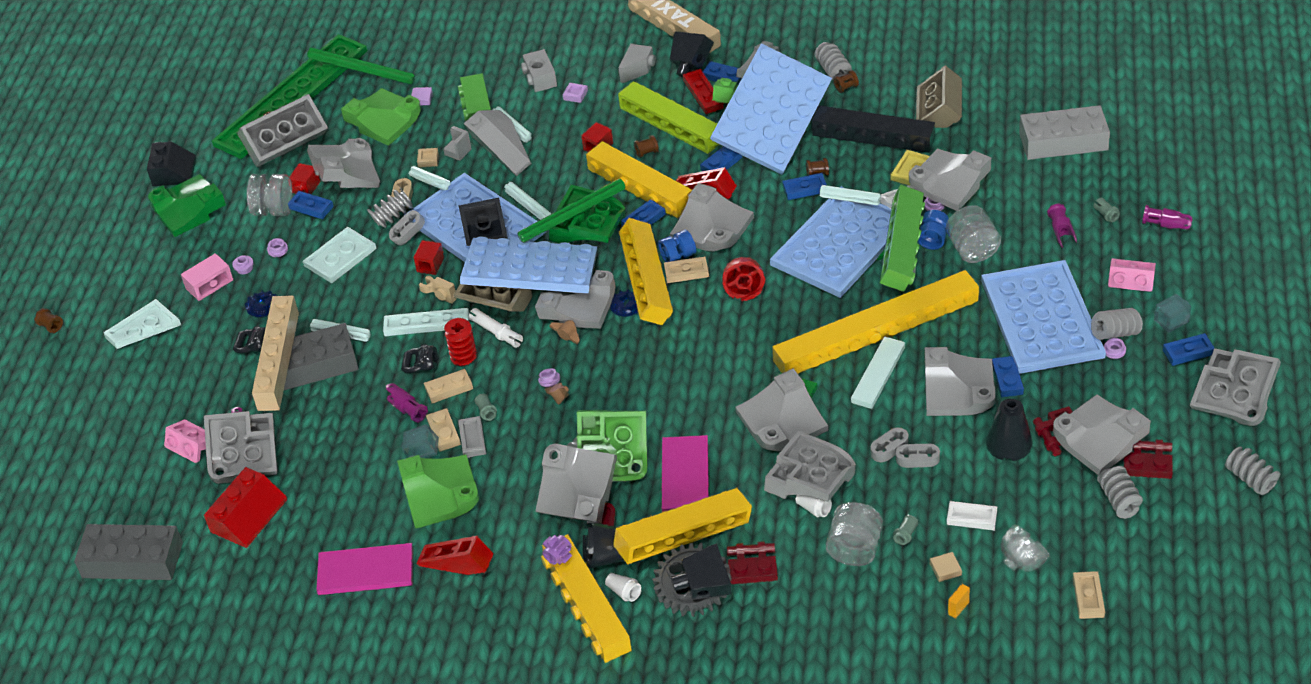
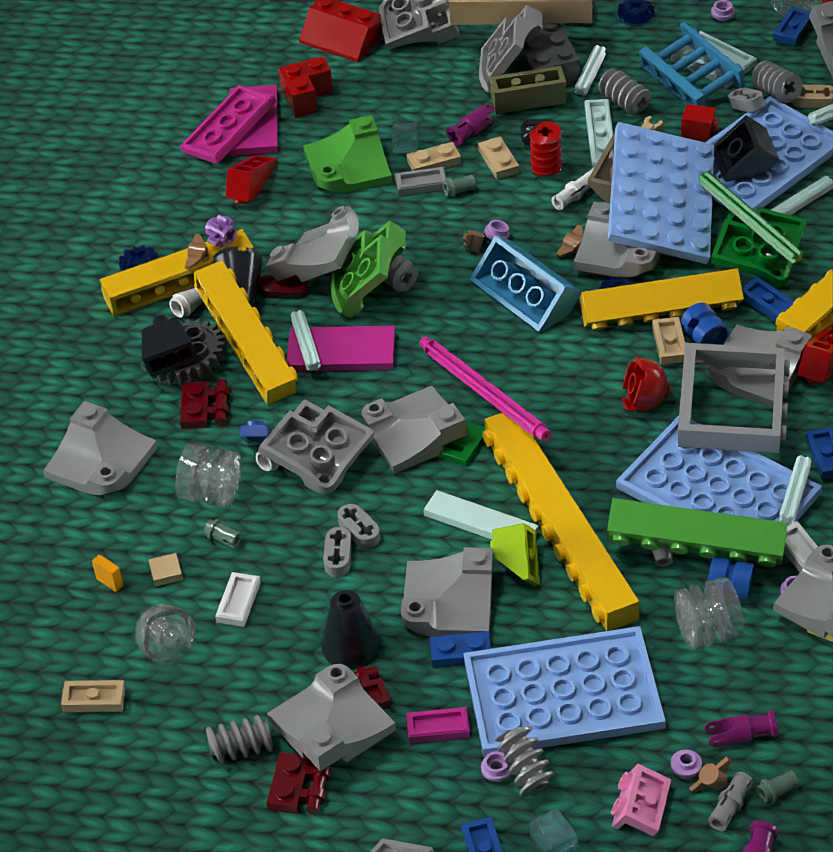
camera: 90 degrees right, 0 degrees up
(326, 368) = (507, 43): none -> light grey slope
(333, 529) = (305, 82): none -> red brick
(364, 276) = (683, 86): none -> dark azure fence
(371, 361) = (528, 89): none -> olive brick
(377, 581) = (228, 124): none -> dark pink tile
(383, 299) = (624, 91): none -> light grey piece
(561, 644) = (127, 261): none -> clear blue gear
(578, 569) = (196, 252): none -> medium nougat piece
(619, 356) = (524, 284): none -> dark azure slope
(684, 491) = (305, 340): none -> light aqua axle
(747, 367) = (485, 389): none -> dark pink piece
(765, 244) = (727, 436): none -> light grey window
(802, 508) = (255, 431): none -> blue plate
(819, 630) = (98, 452): none -> light grey slope
(914, 339) = (517, 550): none -> lime slope
(1079, 383) = (438, 725): none -> dark pink tile
(1095, 254) = (686, 771): none -> lavender plate
(1104, 239) = (712, 776): none -> medium nougat piece
(1123, 231) = (730, 801): none -> light grey pin

